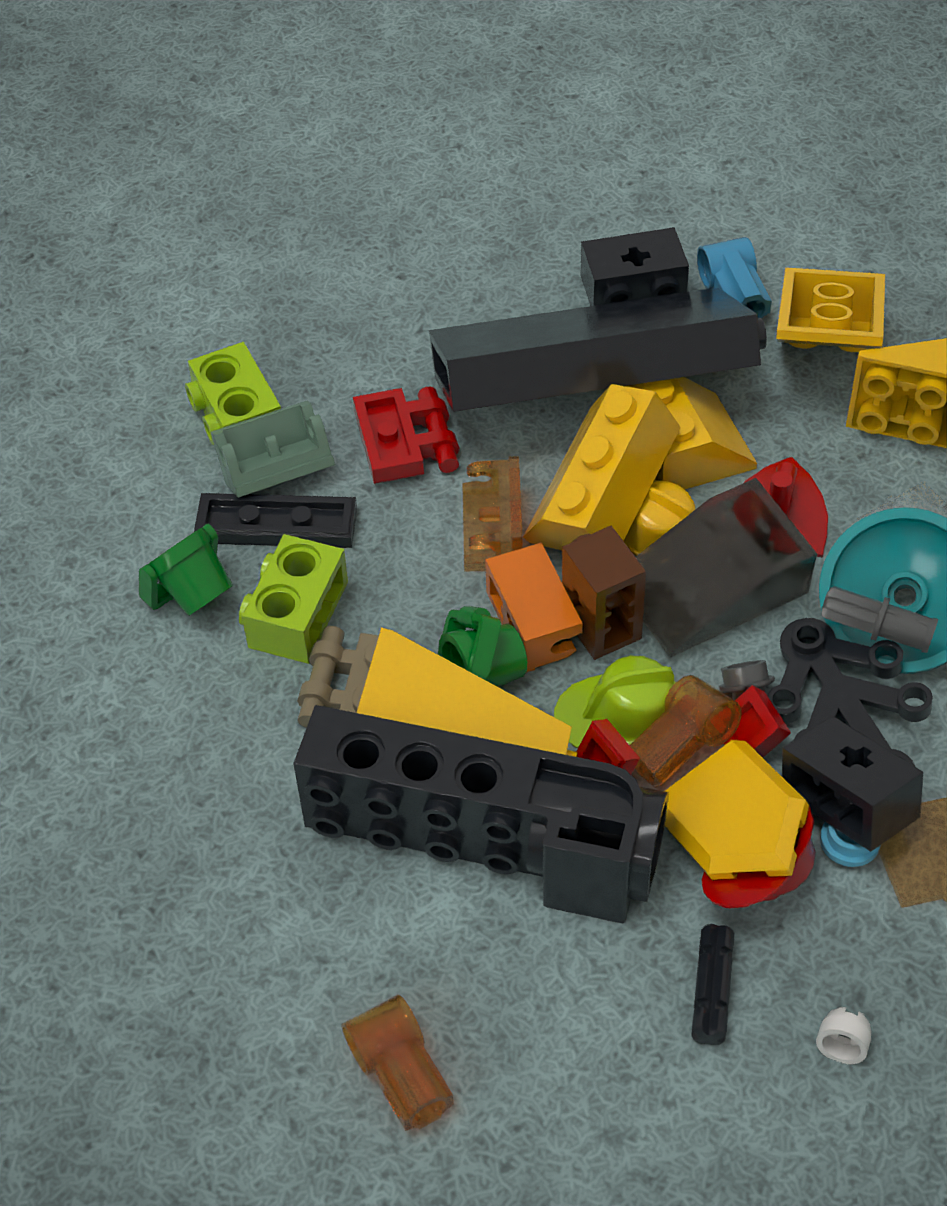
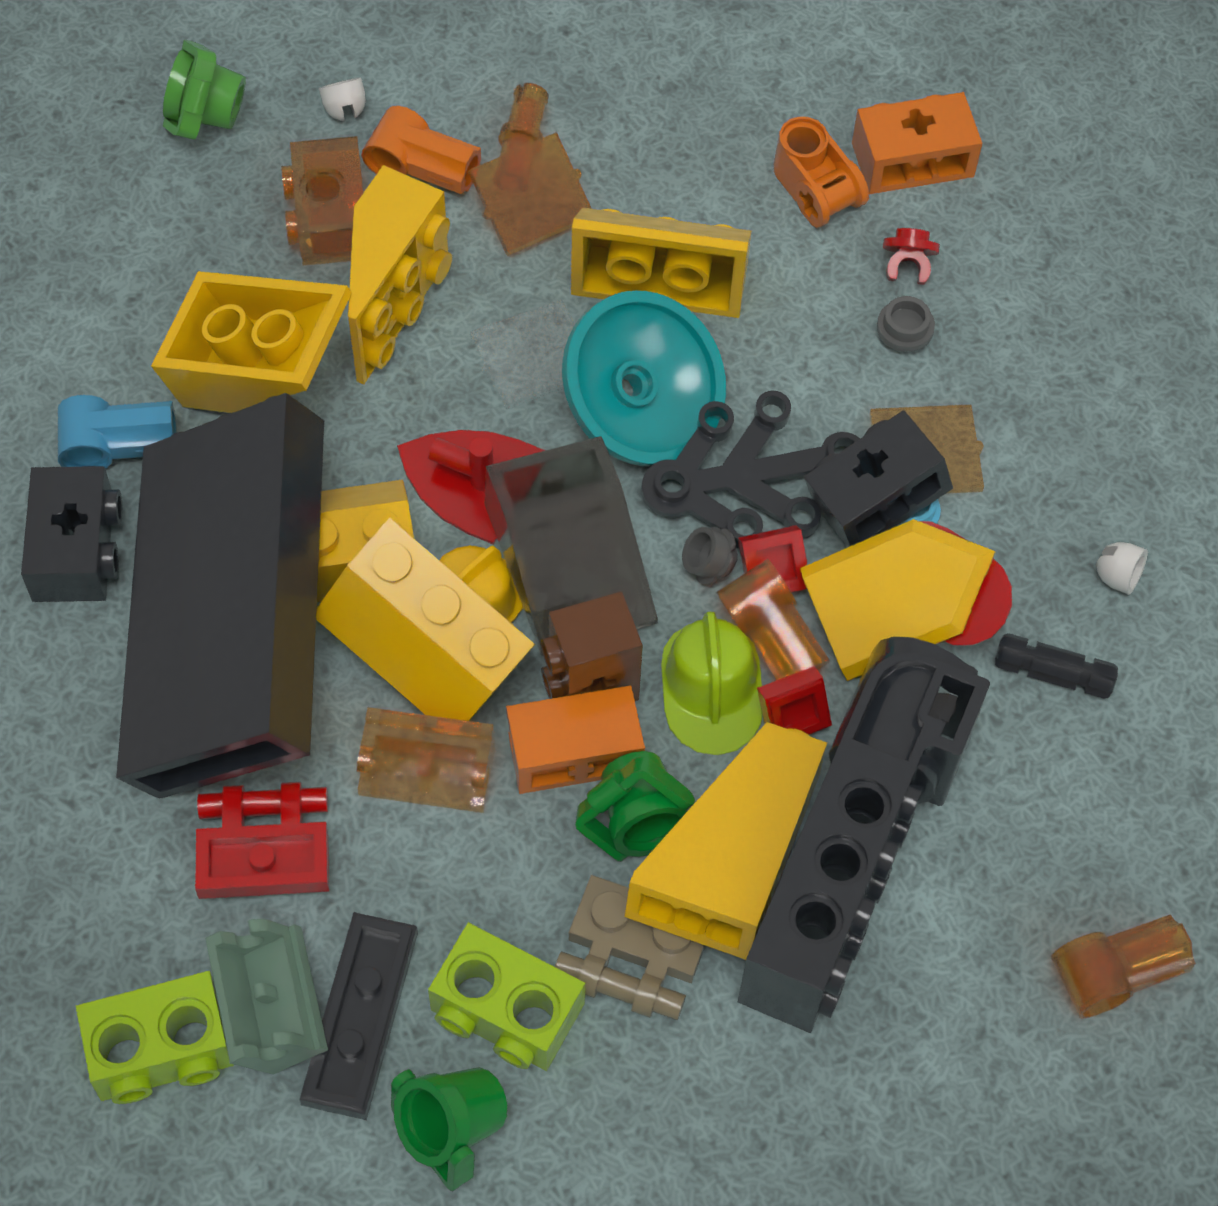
camera: 85 degrees left, 10 degrees up
(879, 618) = (682, 406): dark grey axle -> none

